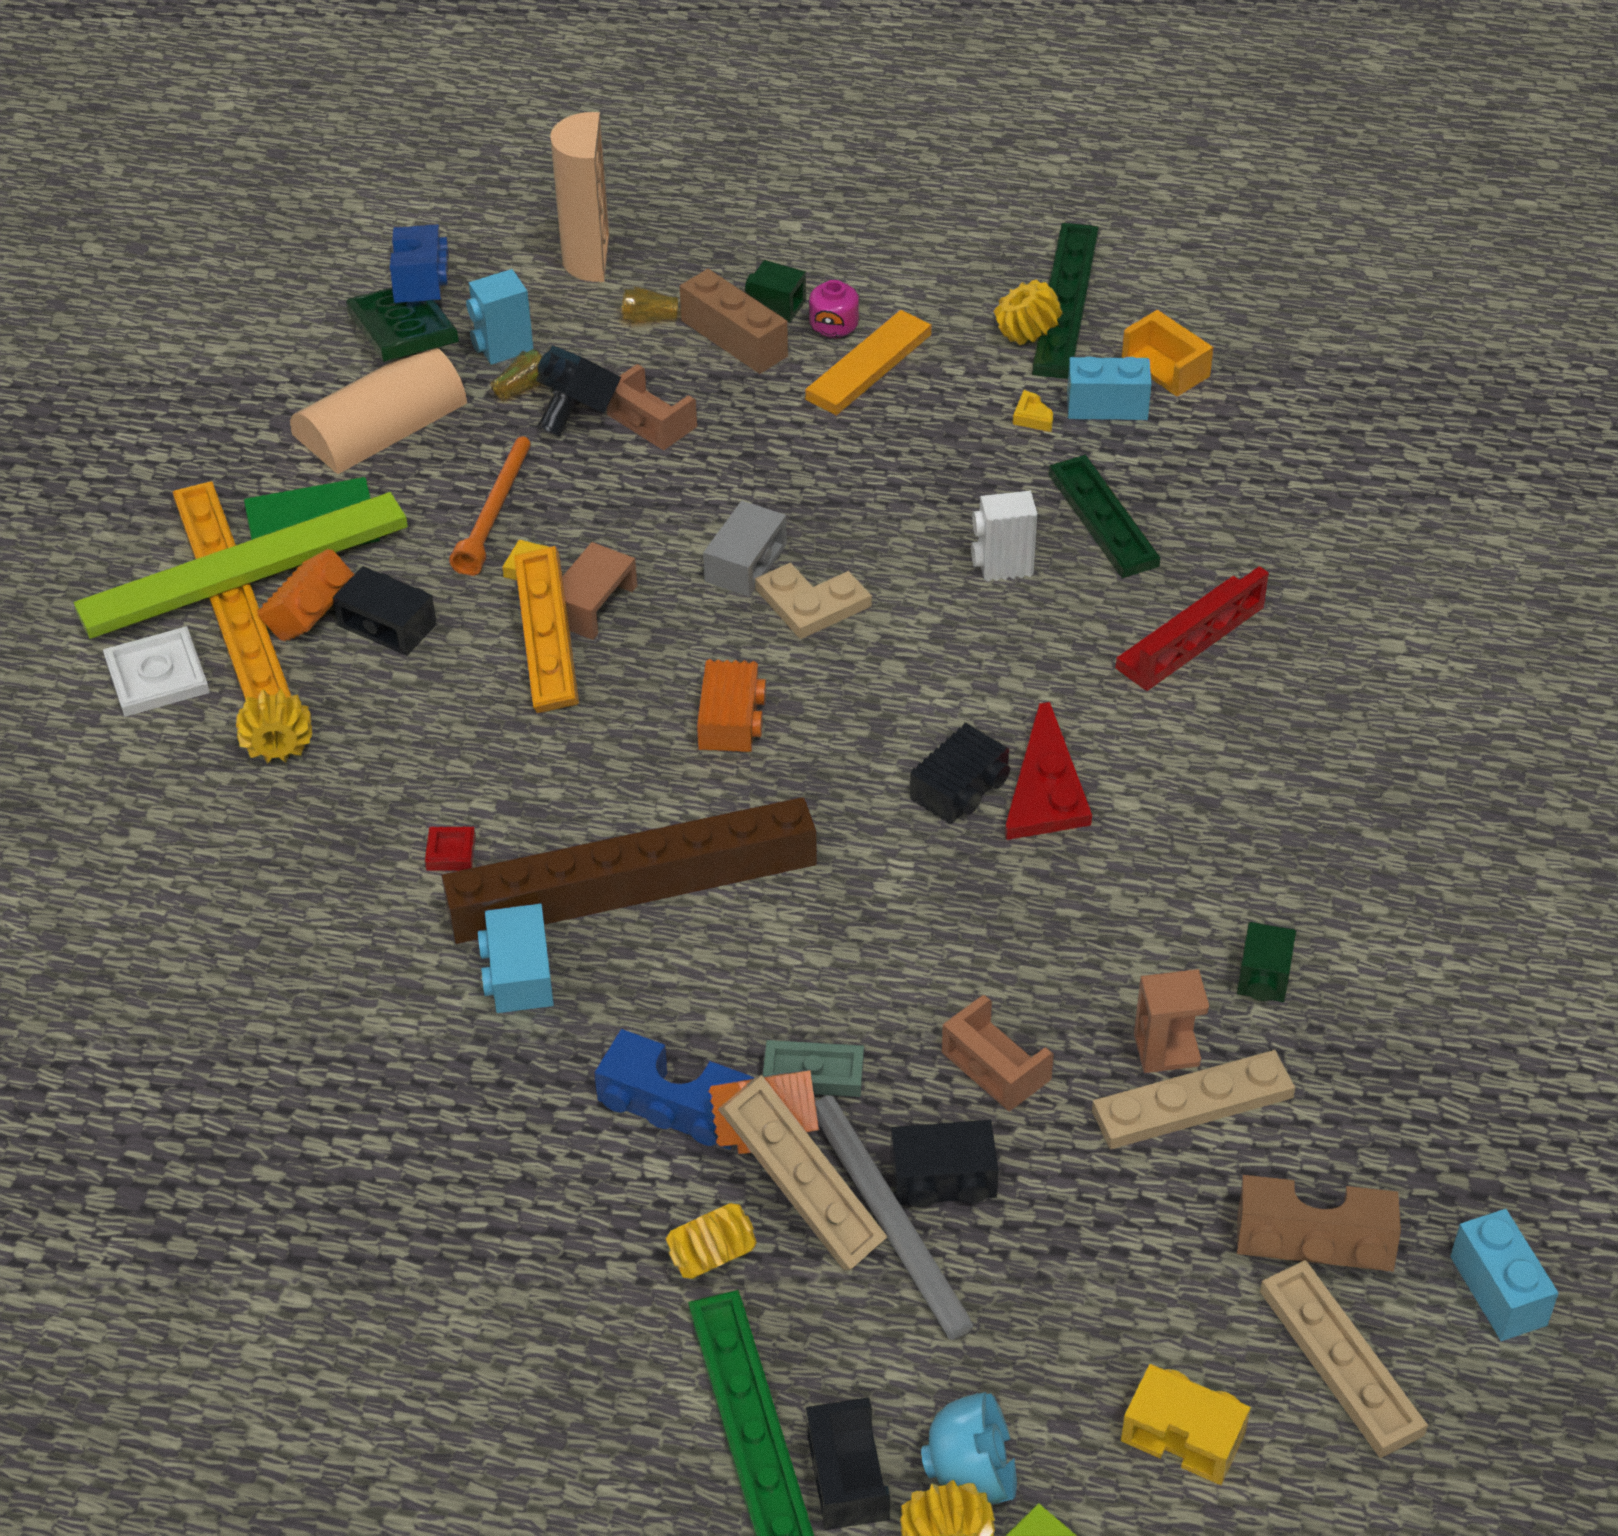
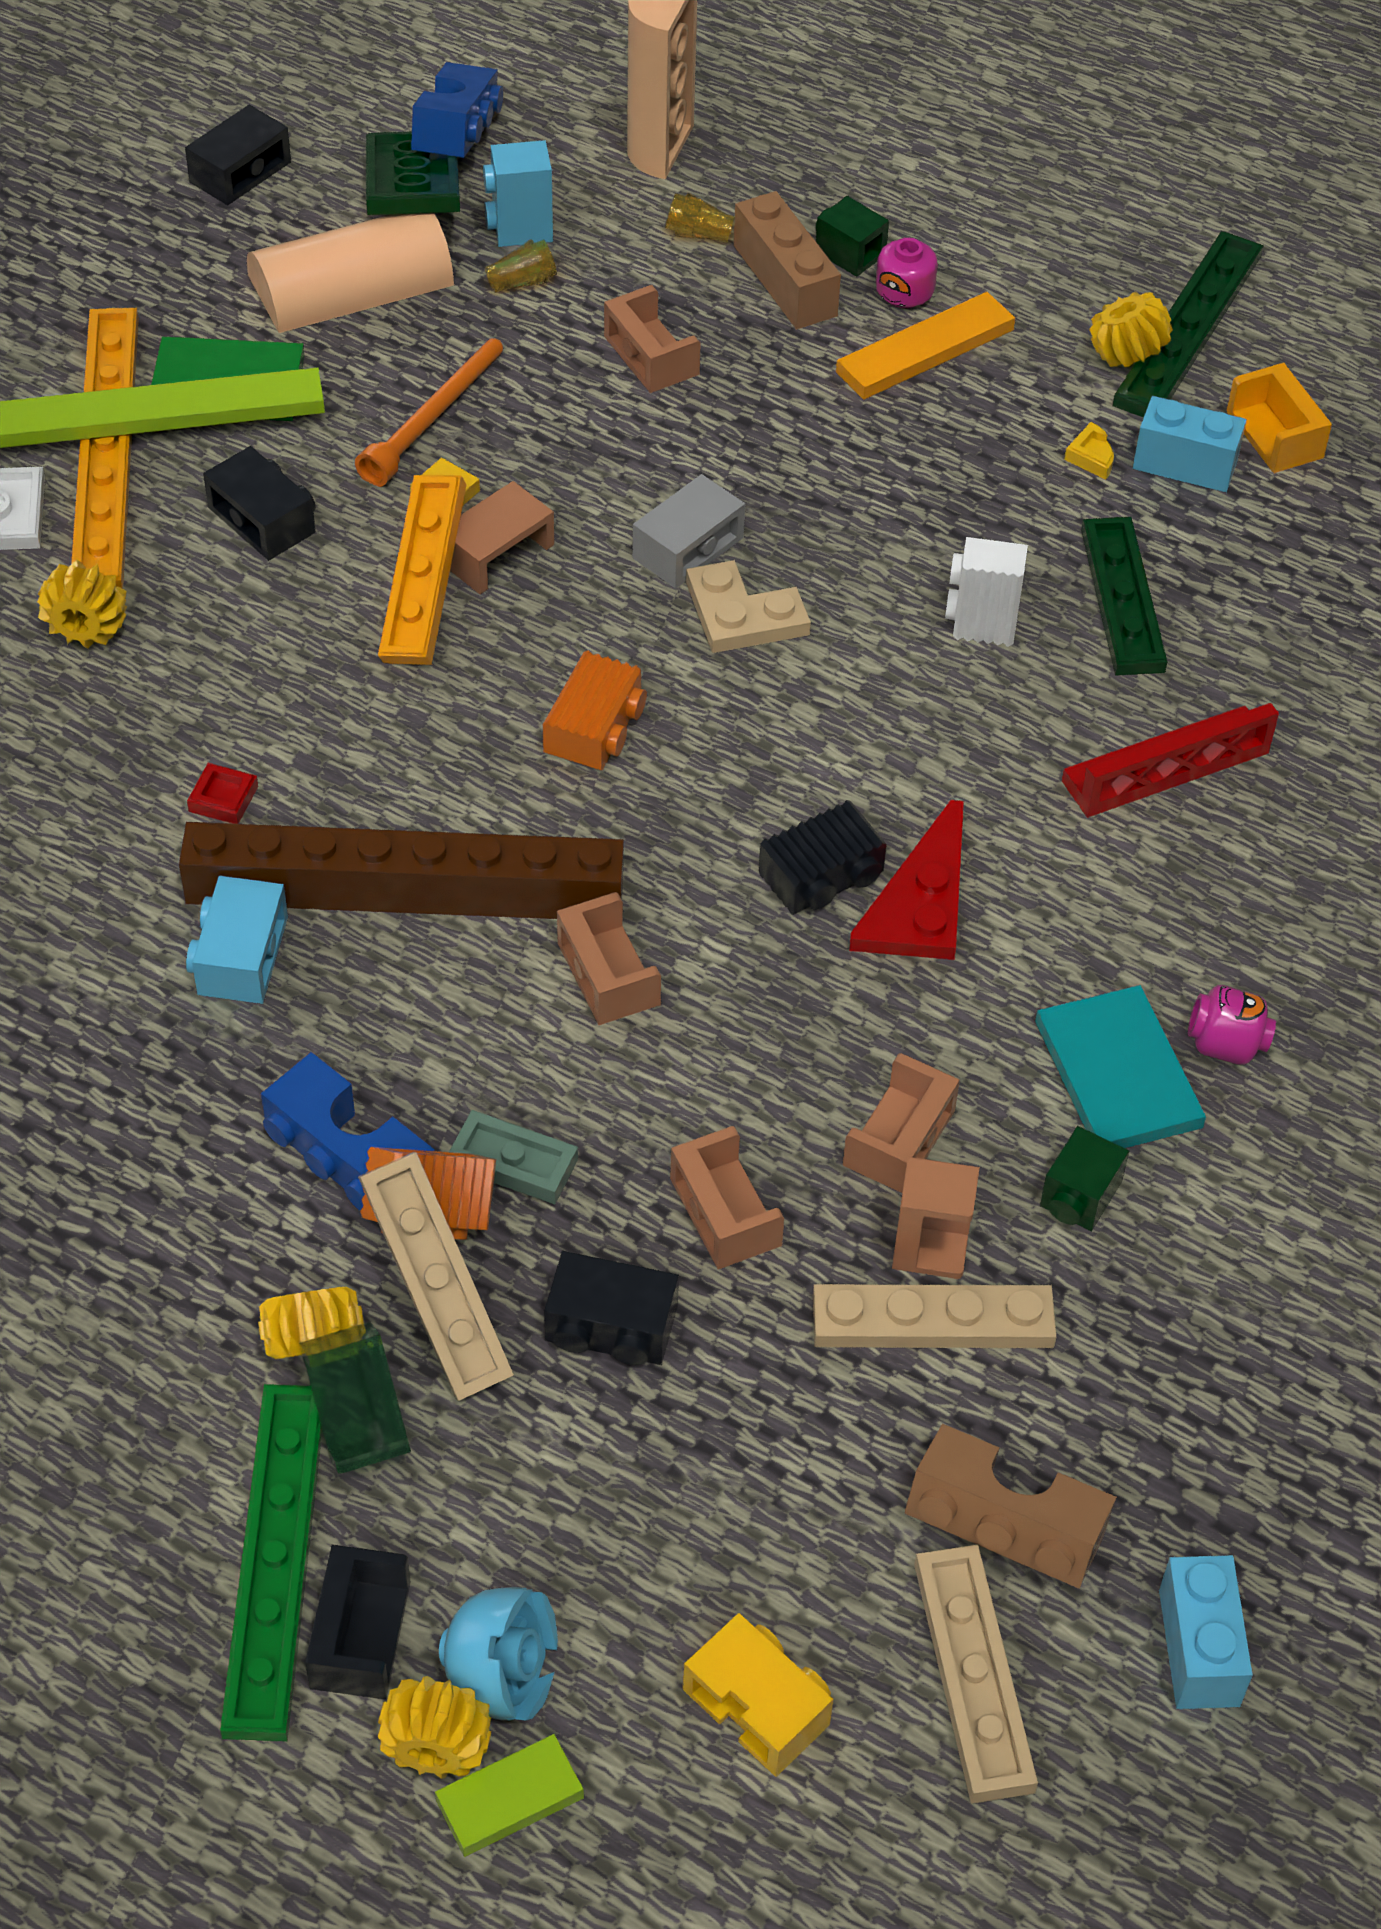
camera: 15 degrees right, 5 degrees up
(246, 339) = (238, 154): none -> black brick
(305, 595) = (178, 464): orange brick -> none
(572, 382) = (568, 289): black brick -> none
(775, 1287) = (355, 1397): none -> clear green panel
(820, 899) = (605, 959): none -> nougat panel
(892, 1219) = (529, 1355): light grey axle -> none
(1108, 958) = (903, 1122): none -> nougat panel
(1254, 871) = (1120, 1068): none -> teal tile
(1327, 816) = (1231, 1024): none -> dark pink head

